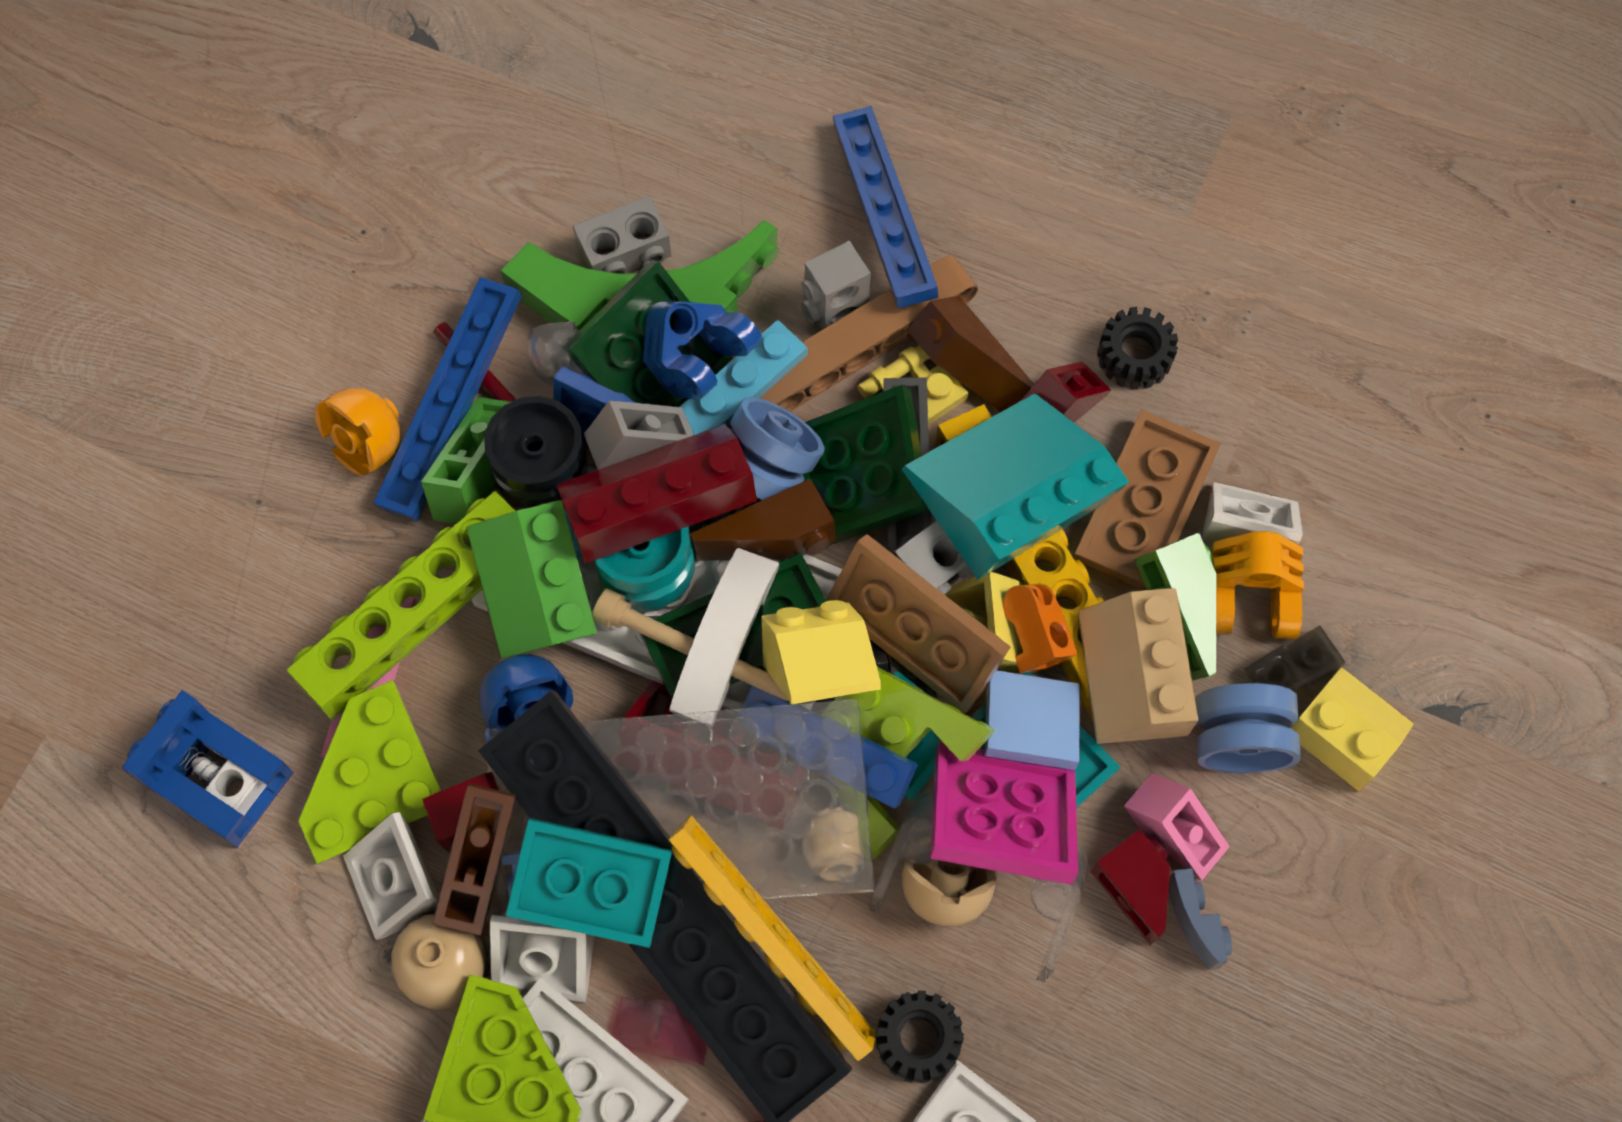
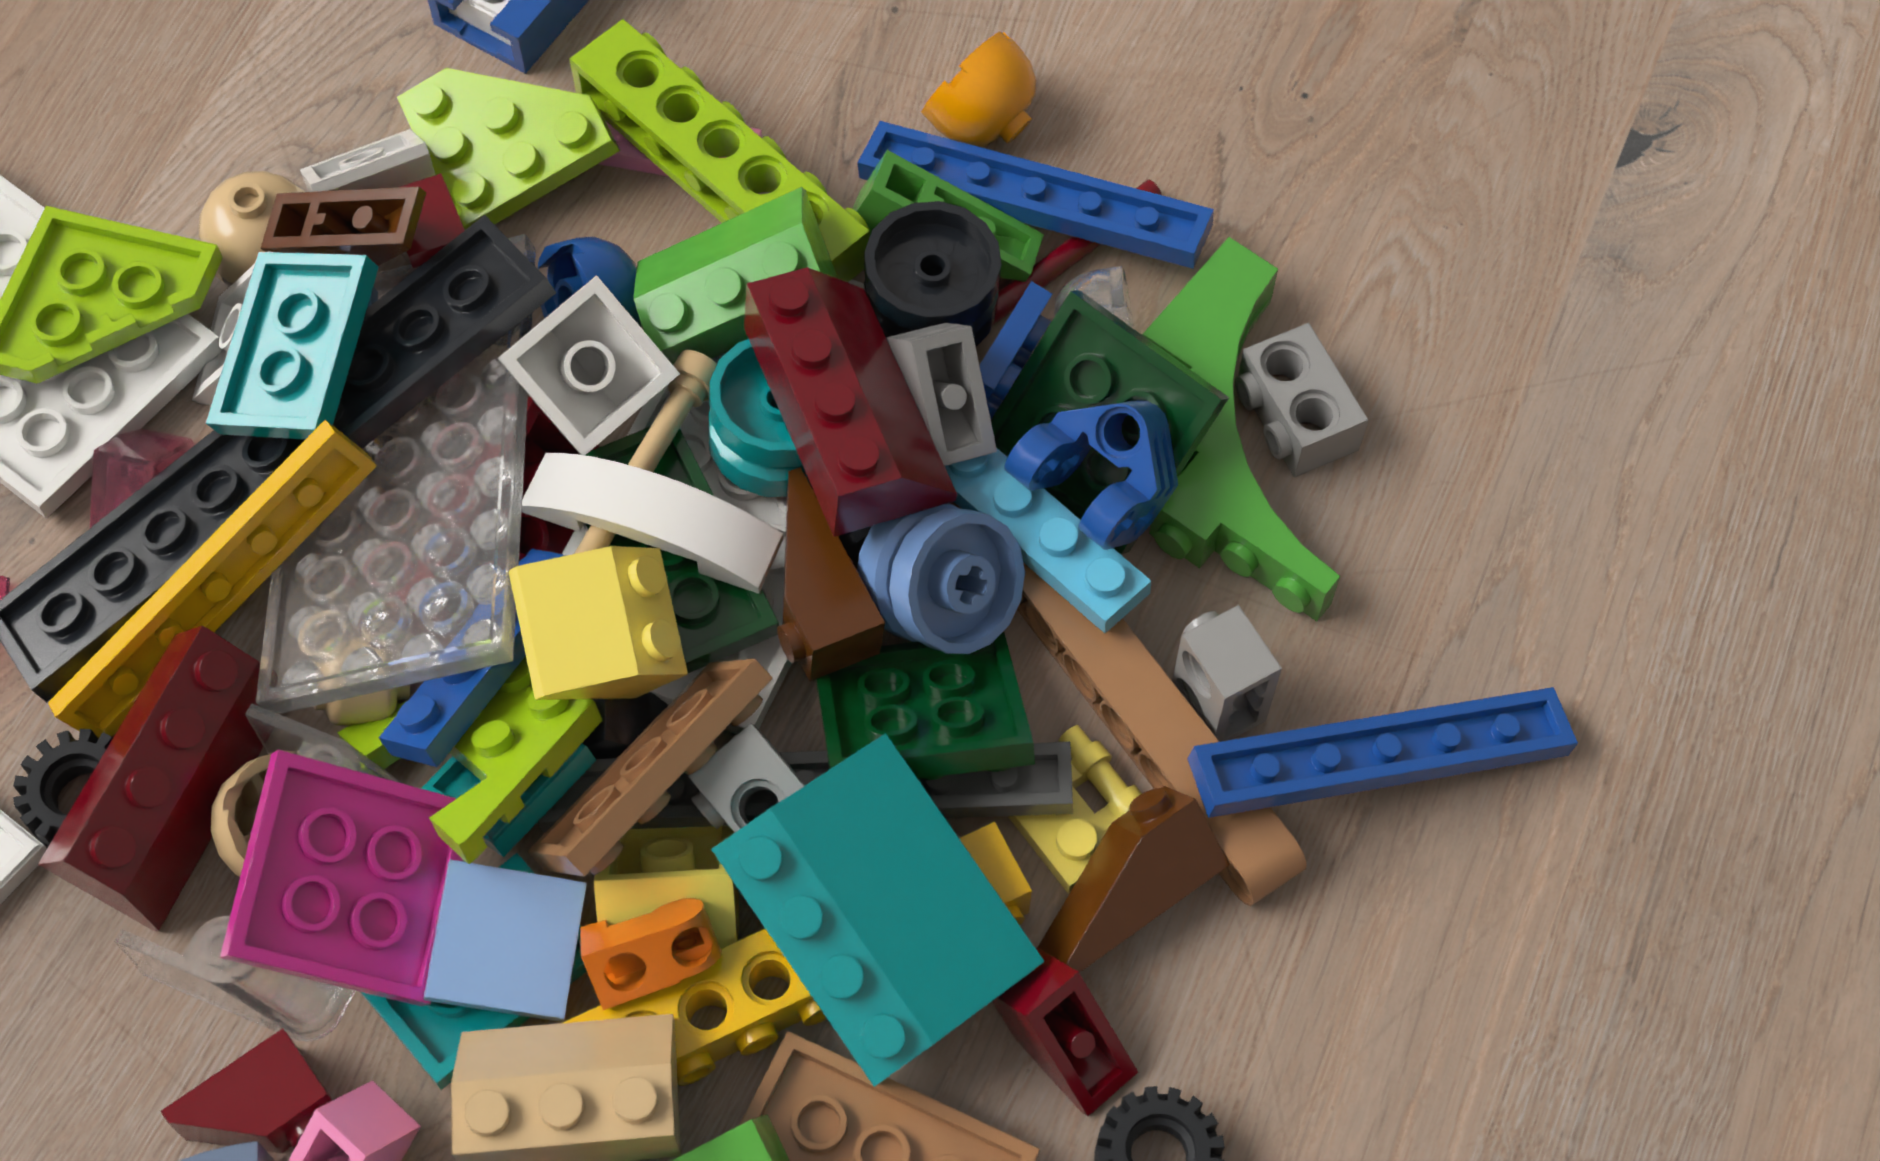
camera: 90 degrees right, 5 degrees down
(608, 672) = (588, 366): none -> white slope
(915, 967) = (154, 788): none -> dark red slope

